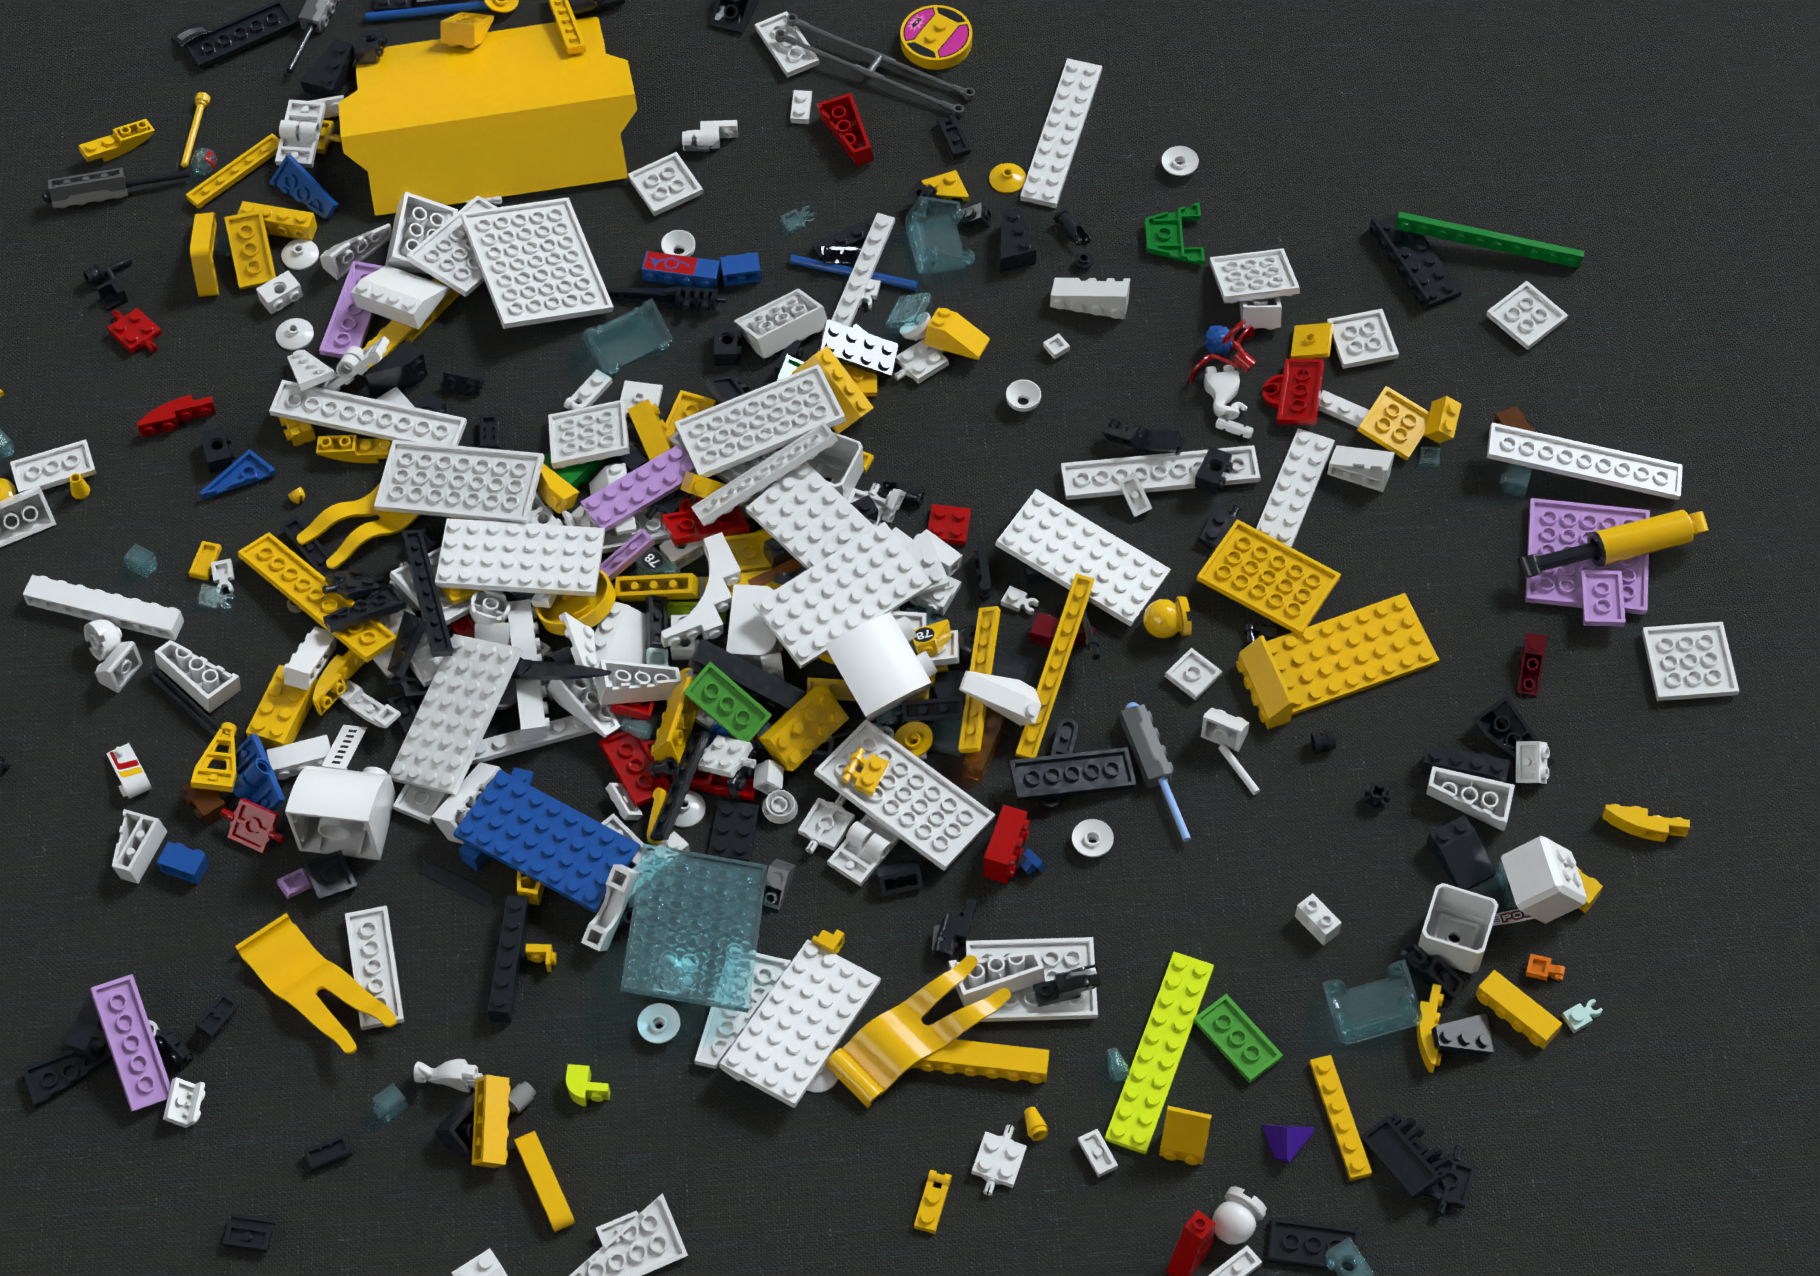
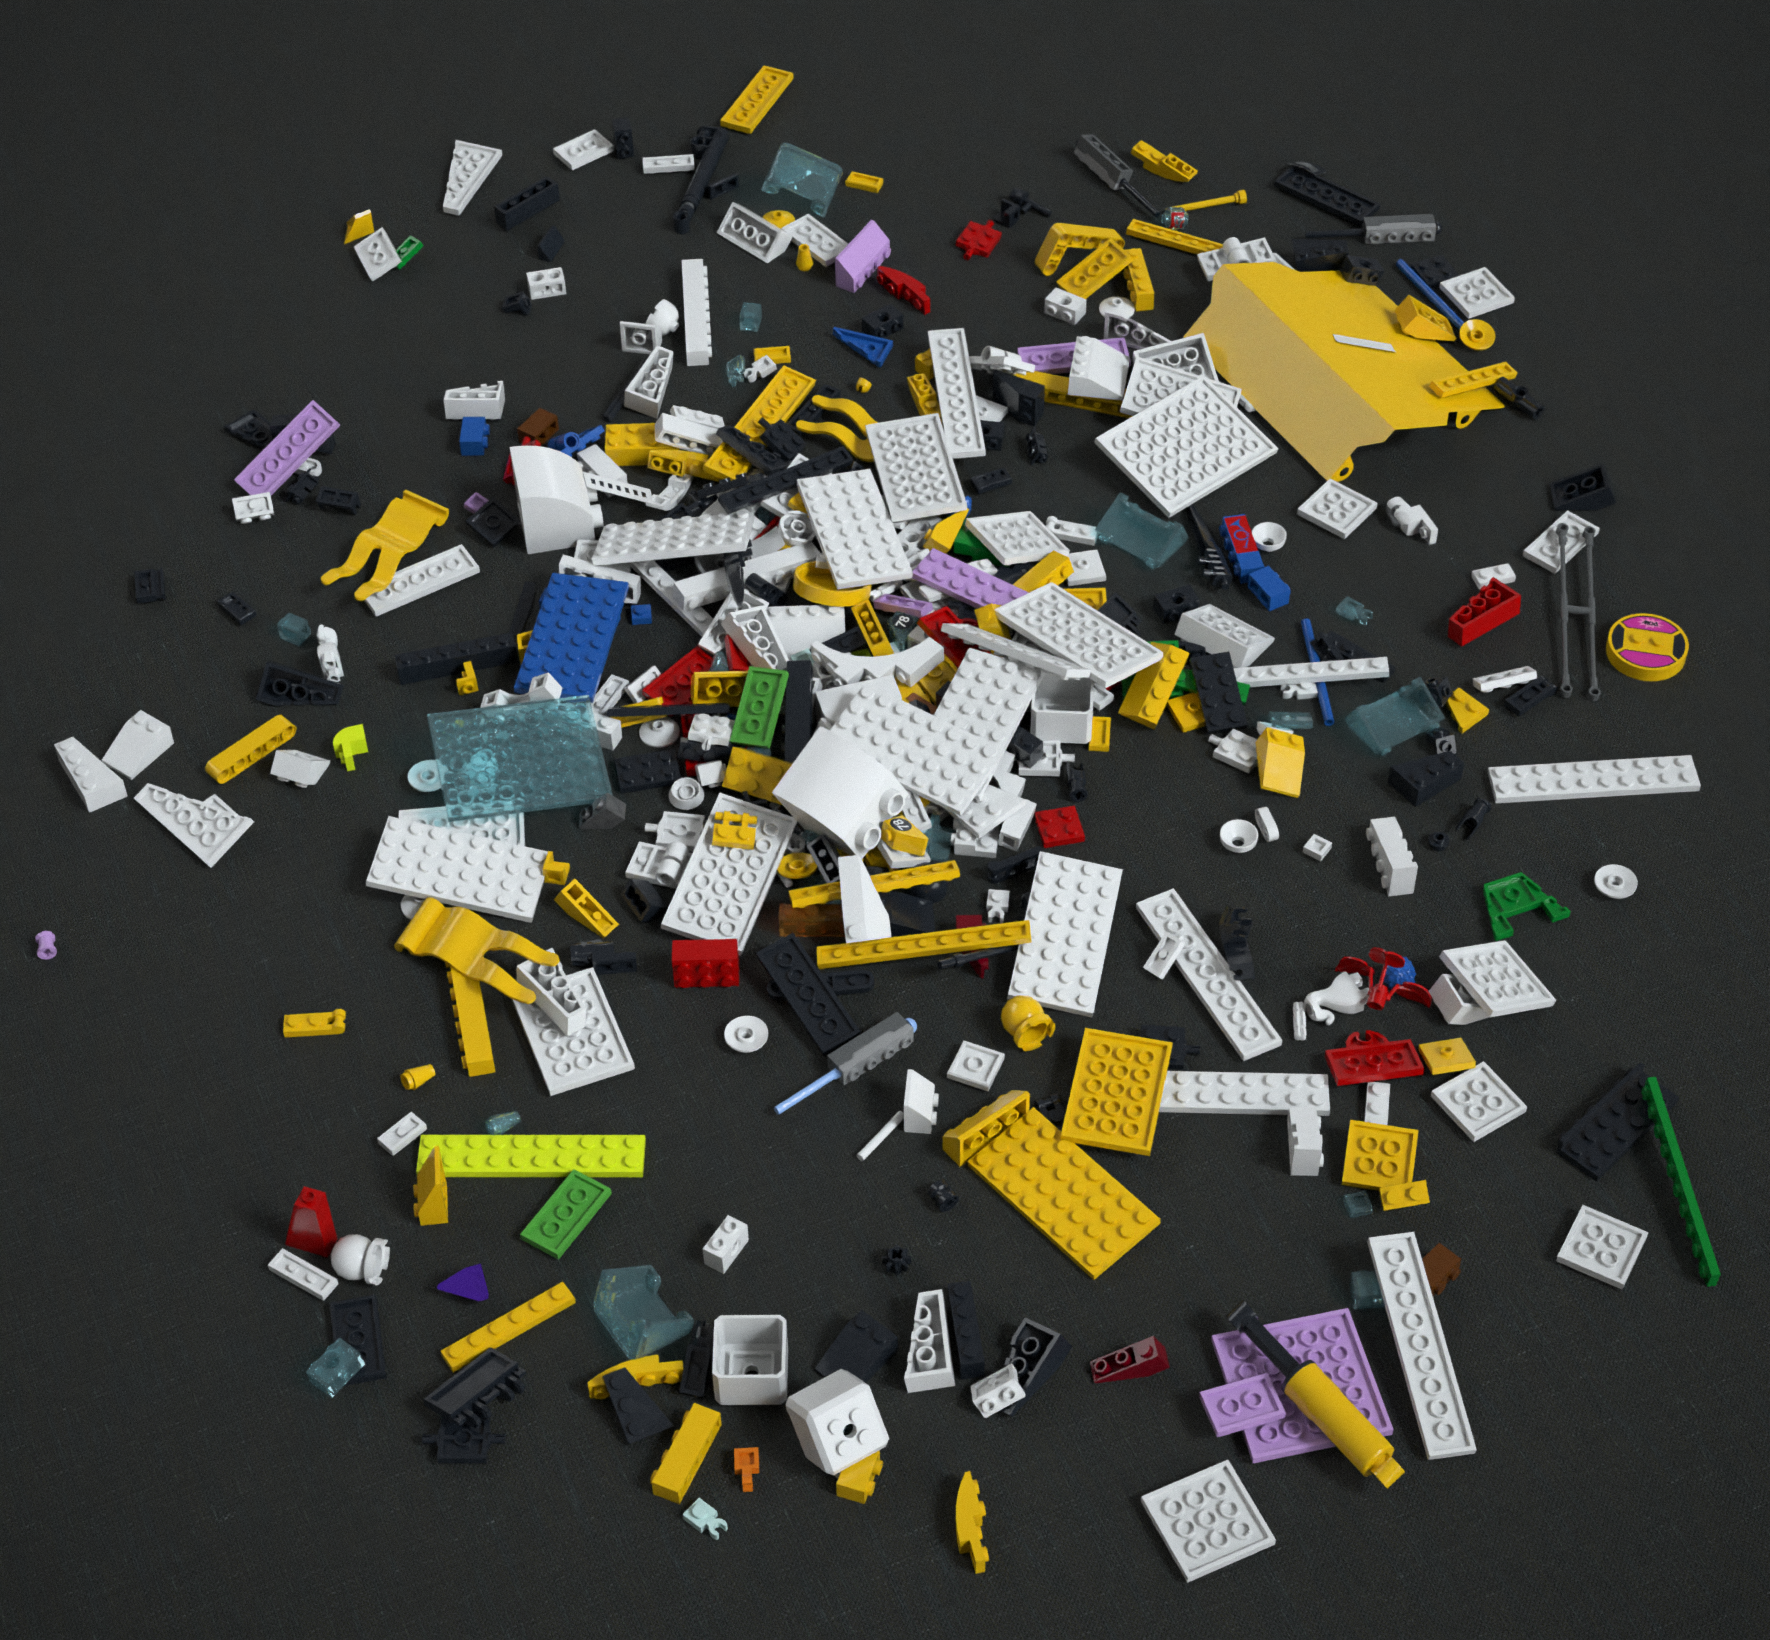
camera: 70 degrees right, 10 degrees down
(114, 436) = (861, 257): none -> lavender slope
(129, 771) = (539, 381): white door -> none
(215, 778) = (552, 424): yellow plate -> none
(278, 649) = (699, 417): none -> white plate
(295, 339) = (1031, 332): white dish -> none
(298, 183) = (1184, 279): blue wing -> none
(309, 370) = (979, 340): white wing -> none
(488, 78) = (1361, 342): none -> white sticker
(490, 1121) = (289, 690): yellow brick -> none
(520, 1097) = (325, 708): light grey brick -> none
(582, 641) = (779, 591): white wing -> none
(592, 1139) = (298, 767): none -> white slope
(664, 767) = (687, 697): black bush -> none
(890, 929) = (585, 909): none -> yellow slope
(893, 501) = (1056, 771): white plate -> none
(927, 145) = (1505, 679): none -> white plate
(998, 1159) = (372, 1060): white plate -> none
(1007, 178) = (1508, 753): yellow dish -> none
(1015, 371) = (1266, 824): none -> white beam
(1032, 863) = (701, 995): blue tile -> none
(1066, 985) = (566, 1051): black plate -> none
(1214, 460) = (1224, 1008): black brick -> none

